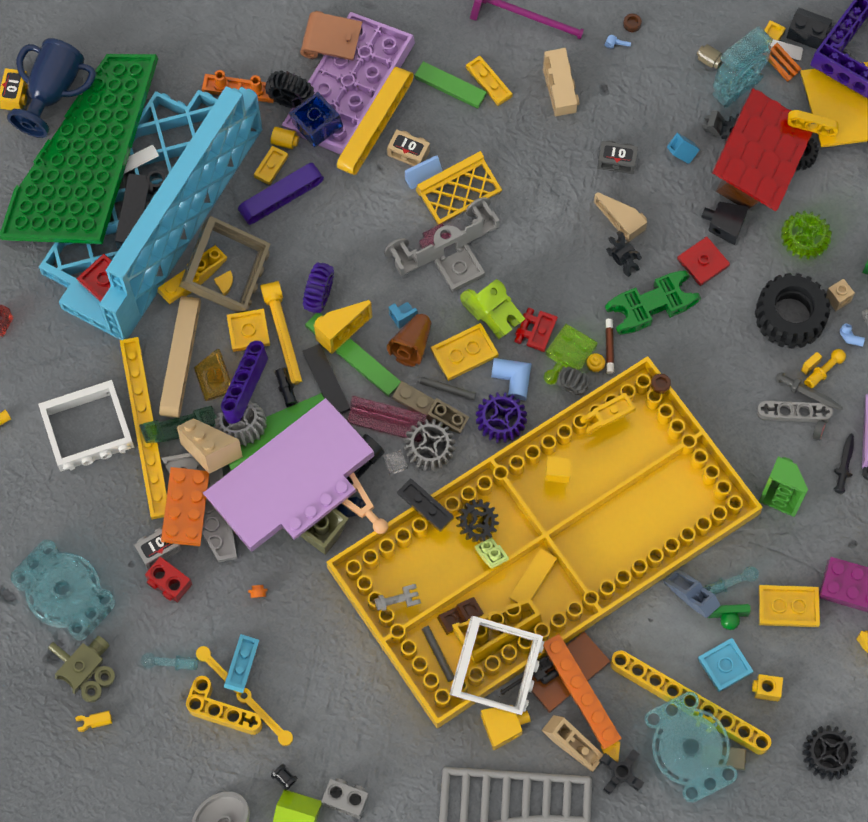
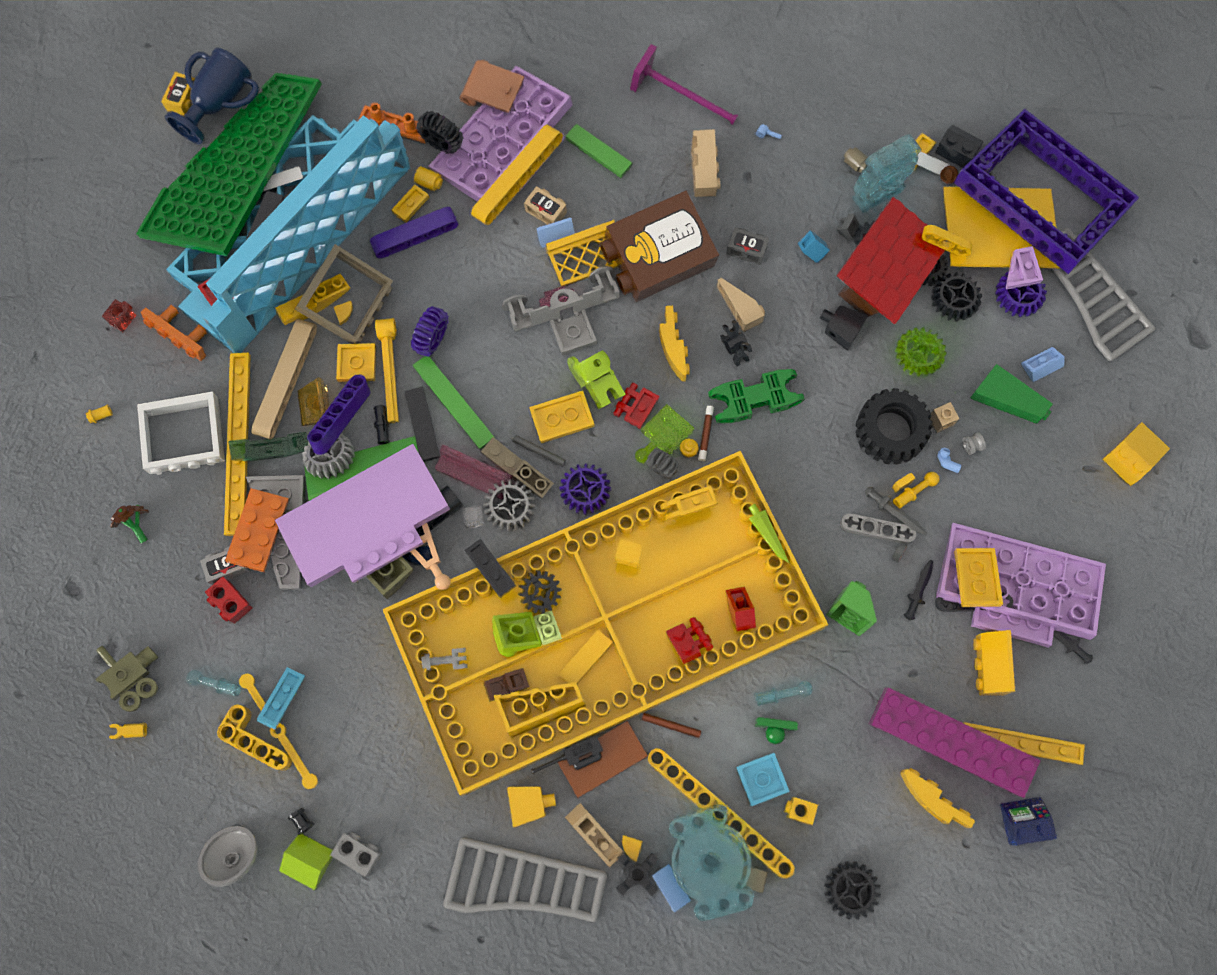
camera: 10 degrees right, 5 degrees up
(51, 510) = (122, 516): none -> plant
(63, 333) = (178, 339): none -> orange plate
(67, 609) = (142, 602): clear light blue piece -> none
(209, 445) = (291, 472): tan wedge -> none
(258, 591) = (313, 626): orange plate -> none
(316, 119) = (459, 164): clear blue brick -> none
(339, 325) = (443, 372): yellow slope -> none
(402, 314) = (509, 369): dark azure panel -> none
(411, 341) = (511, 397): dark orange cone -> none
(438, 653) = (477, 720): dark grey bar -> none
(461, 562) = (515, 633): none -> lime slope
(489, 80) = (636, 152): yellow tile -> none
(516, 372) = (609, 446): light blue brick -> none
(531, 171) = (659, 247): none -> reddish brown brick
(531, 666) = (556, 770): white window -> none
(560, 266) = (673, 347): none -> yellow slope
(581, 691) = (611, 785): orange plate -> none
(627, 548) = (683, 642): none -> red plate
(627, 629) = (671, 725): none -> copper bar
(632, 22) = (786, 116): reddish brown tile -> none
(655, 780) = (669, 887): none -> light blue slope
(661, 383) = (748, 481): reddish brown tile -> none
(676, 507) = (741, 609): none -> red slope
(682, 422) = (765, 528): none -> lime bar
(692, 592) = (742, 700): sand blue slope -> none
(703, 261) = (814, 362): red plate -> none
(785, 60) = (929, 174): orange tile -> none
(789, 606) = (837, 728): yellow plate -> none
(804, 57) = (949, 174): none -> reddish brown plate
(838, 185) = (967, 305): none -> black gear

